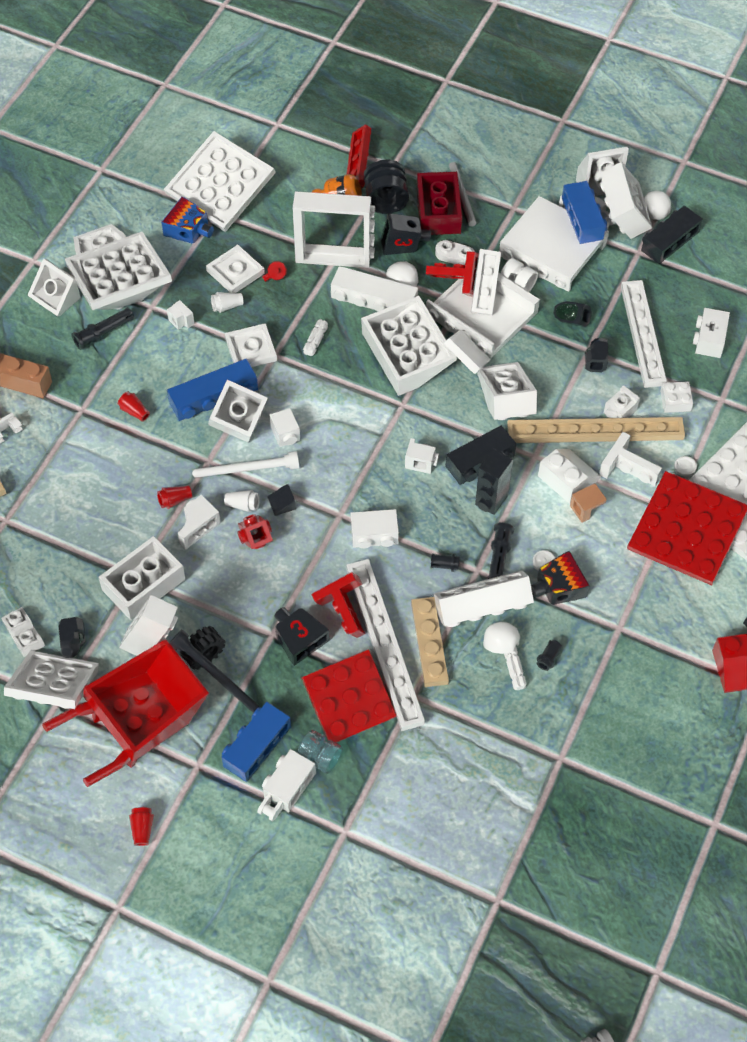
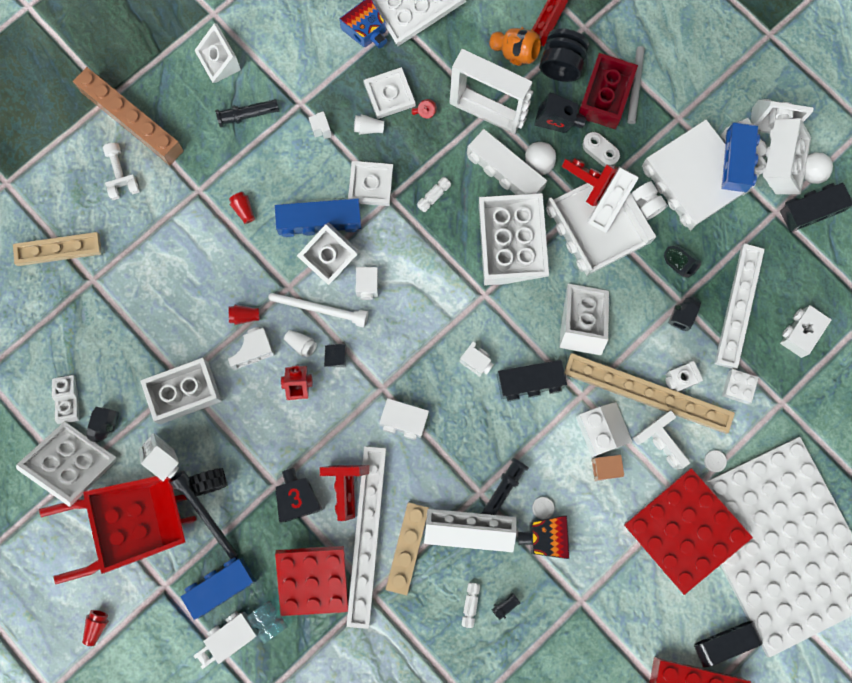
camera: 20 degrees right, 20 degrees up
(115, 268) = (276, 54): white wedge -> none
(445, 561) = (453, 476): black pin -> none
(467, 351) = (563, 269): white tile -> none
(493, 482) = (526, 422): black brick -> none
(501, 638) = (469, 574): white hair -> none

